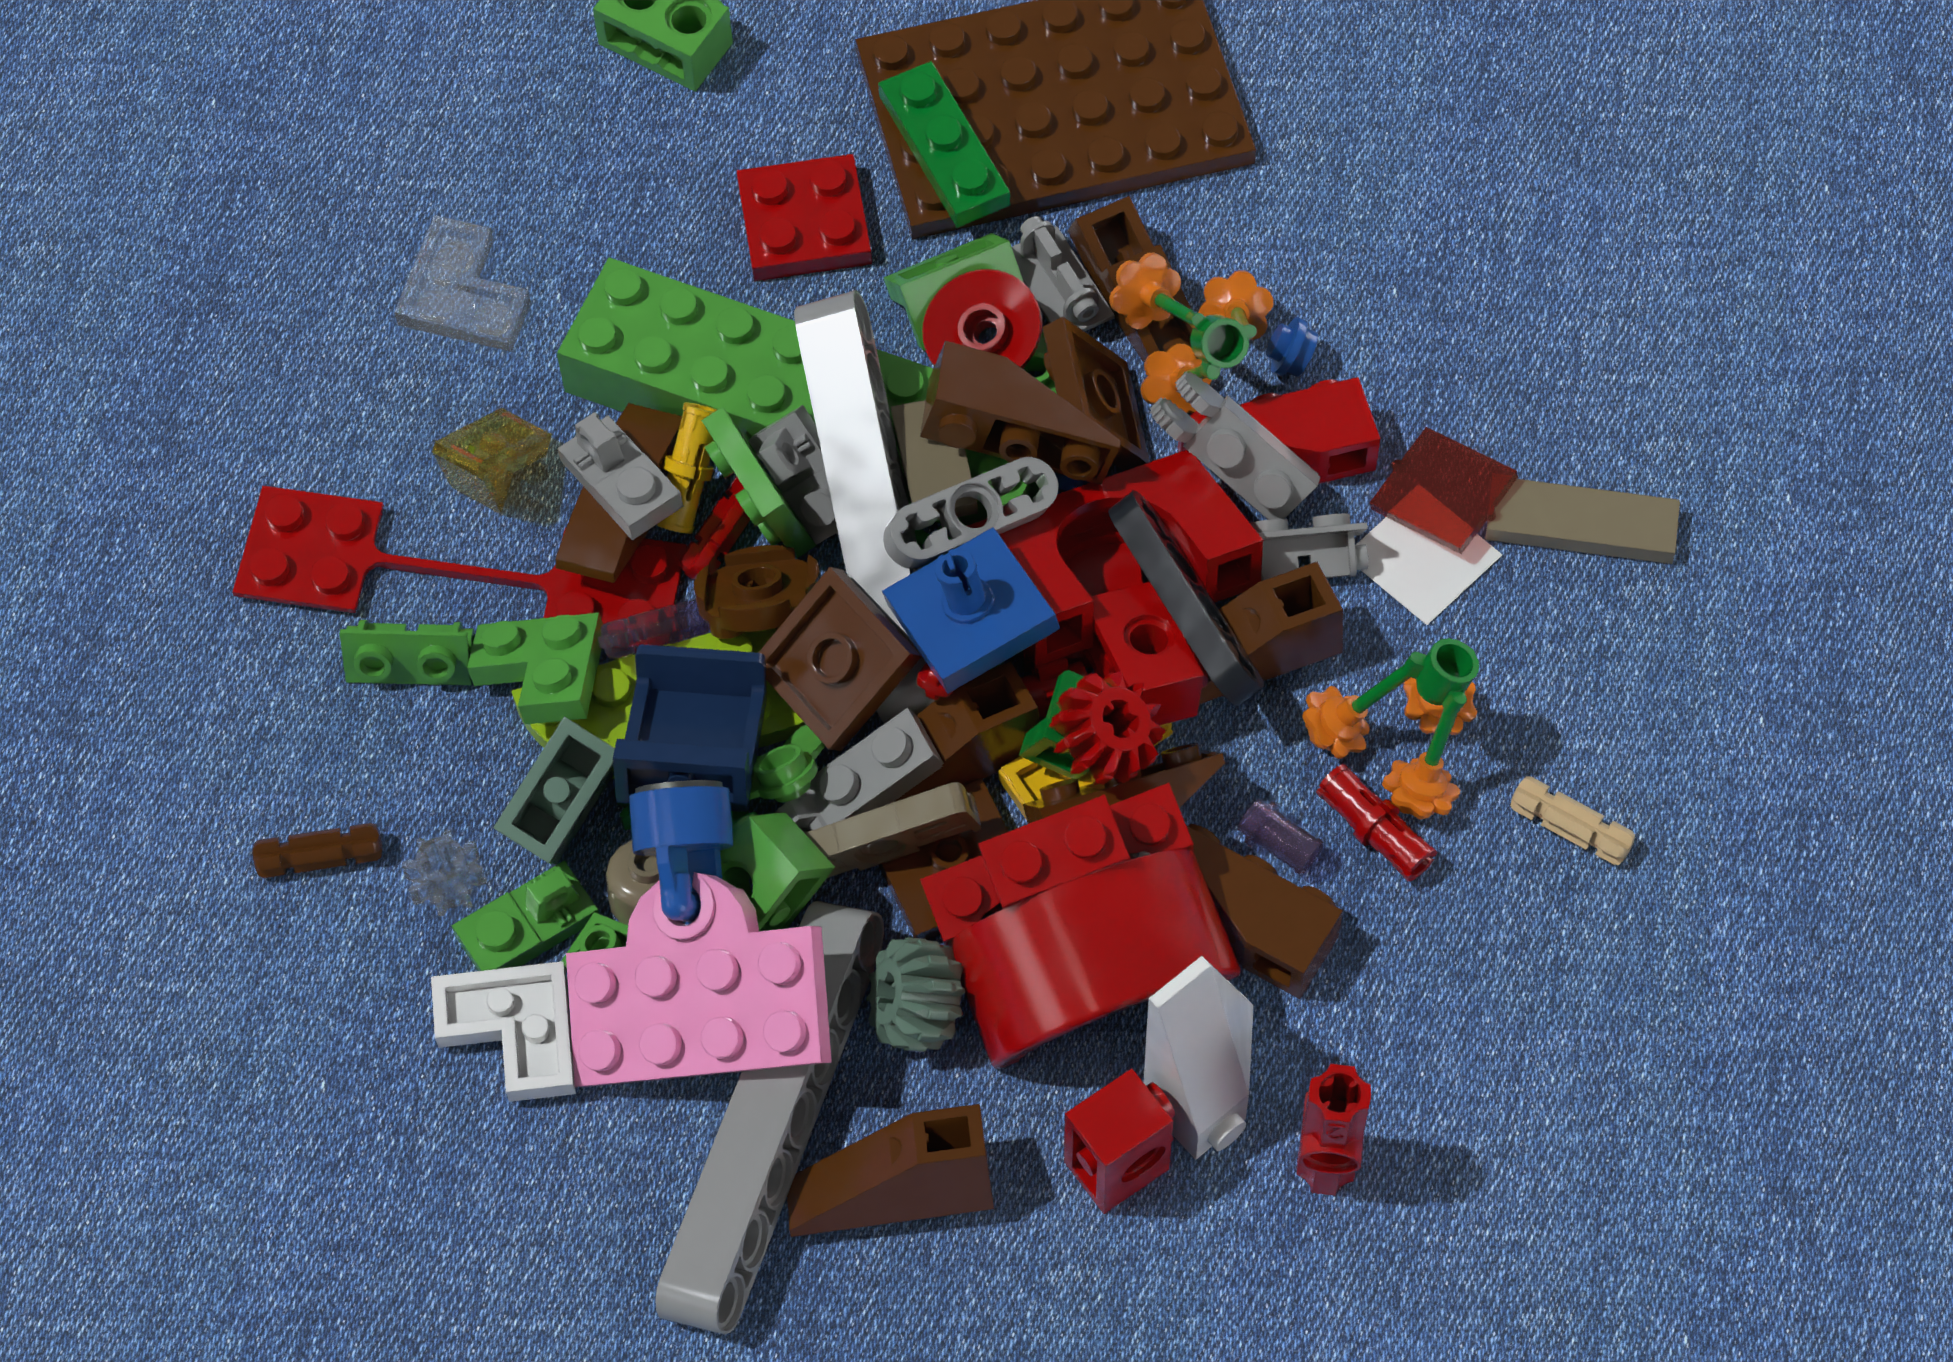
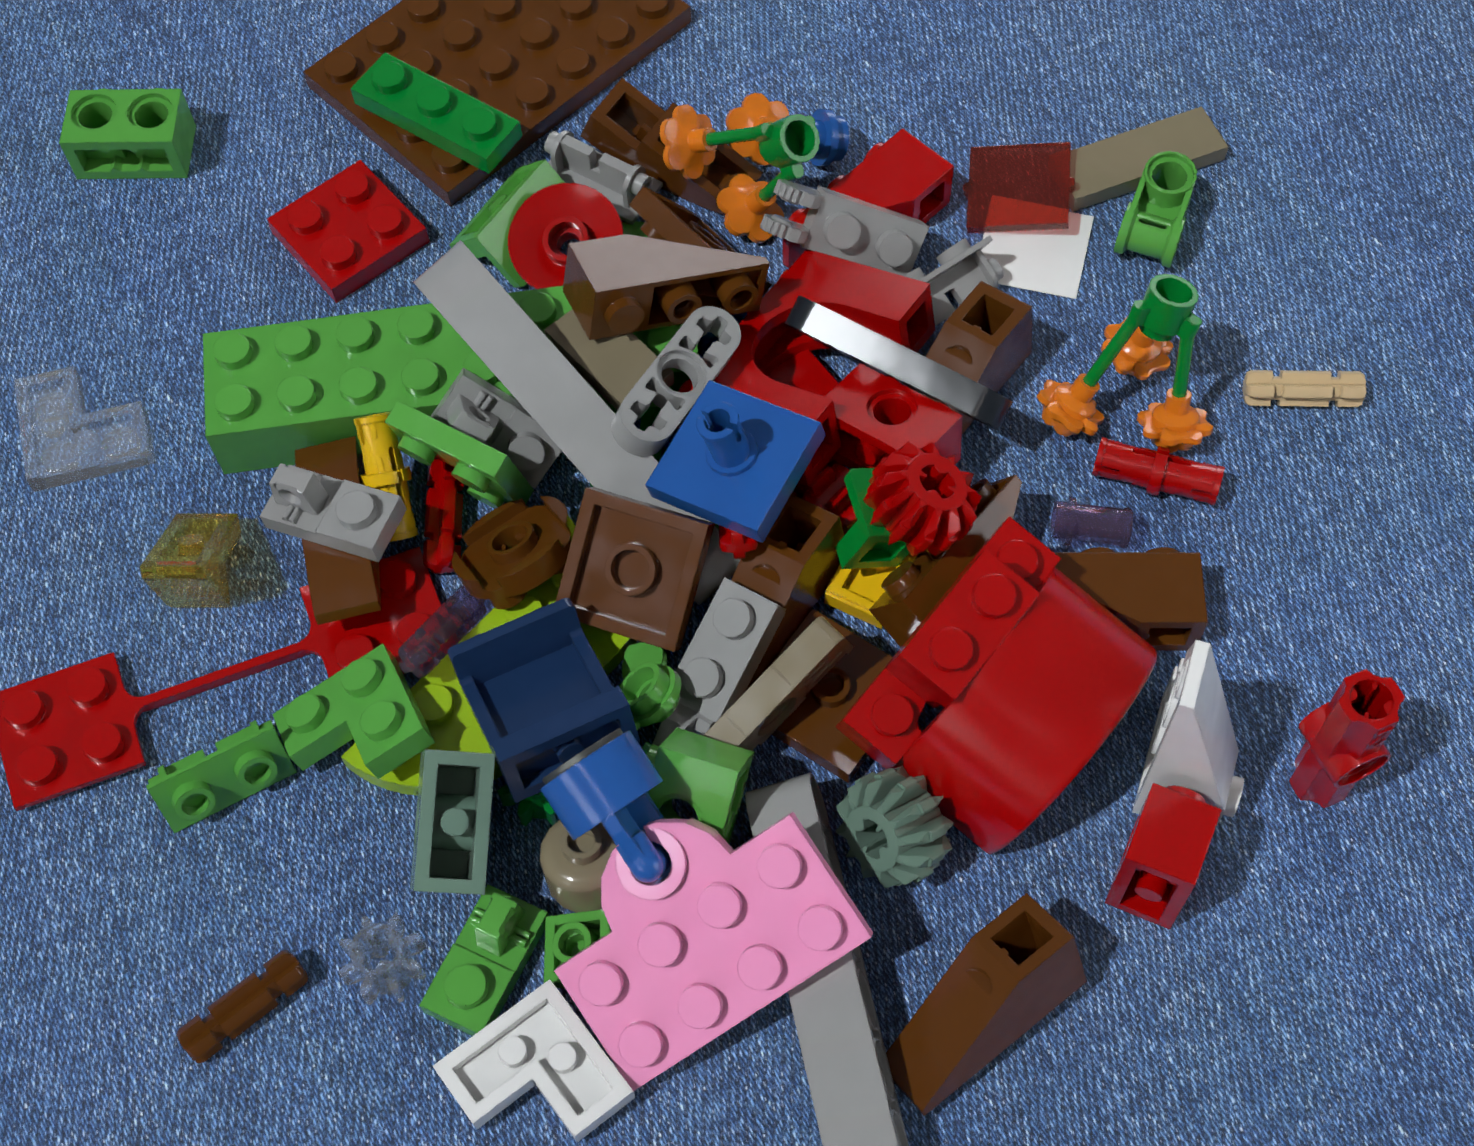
camera: 30 degrees left, 0 degrees up
(1548, 590) = (1159, 208): none -> bright green piece

